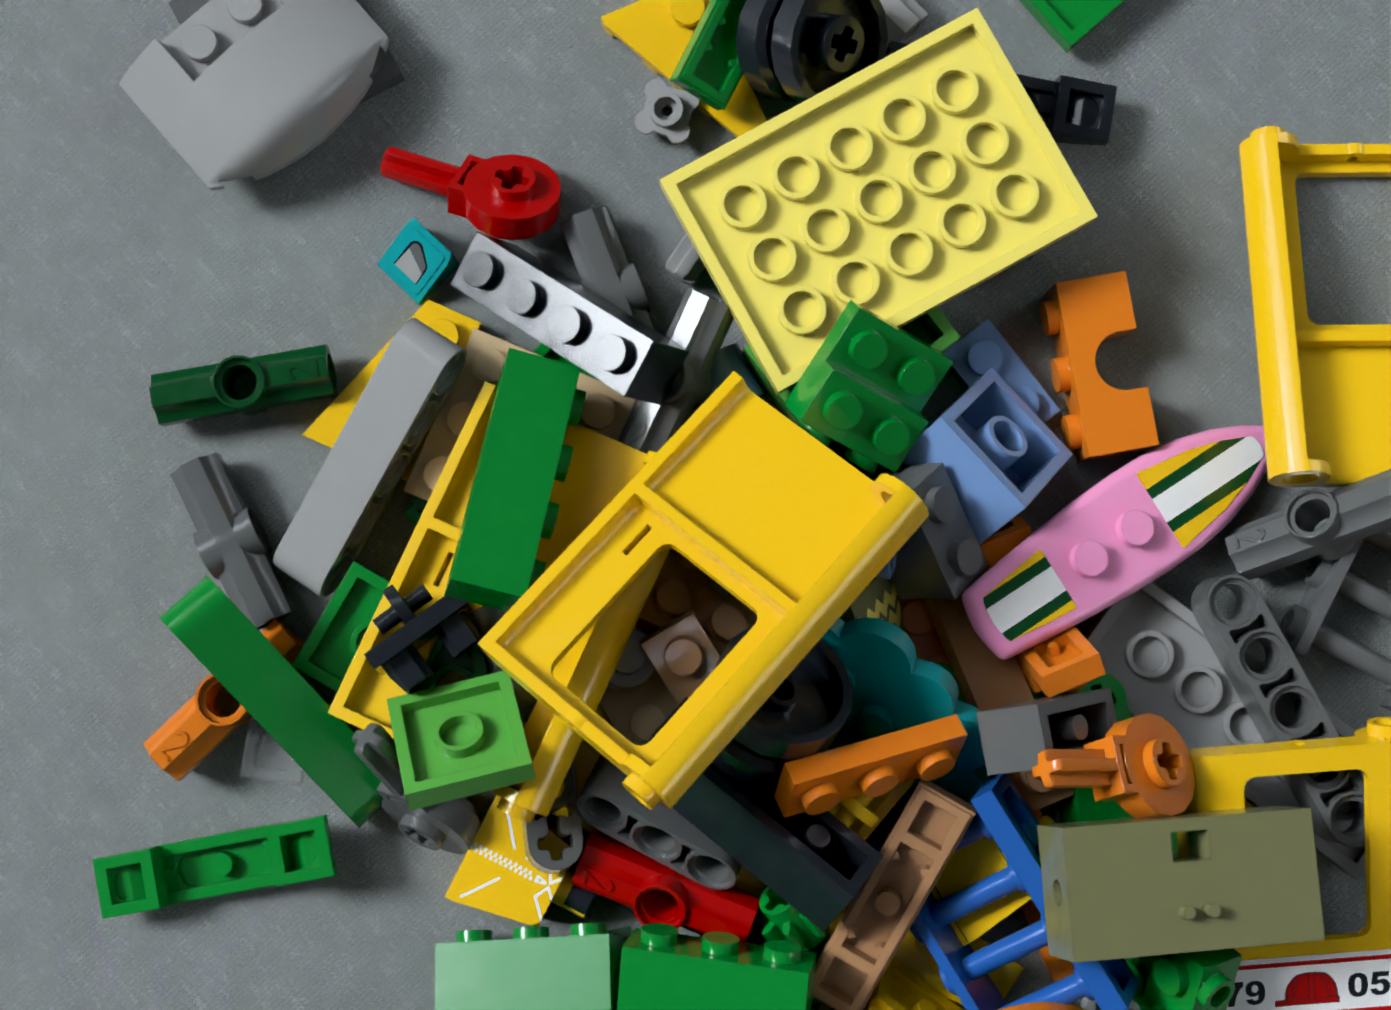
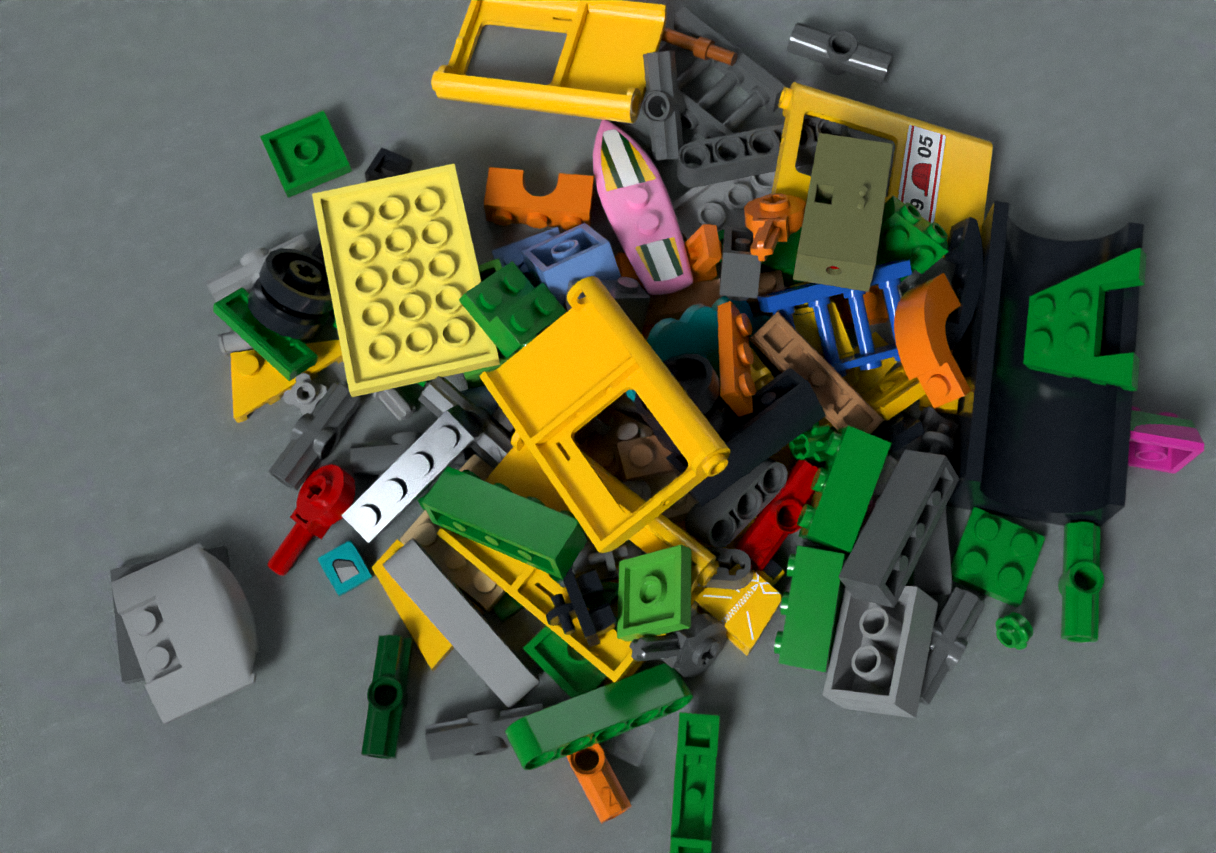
camera: 70 degrees left, 15 degrees down
(599, 146) = (314, 436): none -> dark grey piece

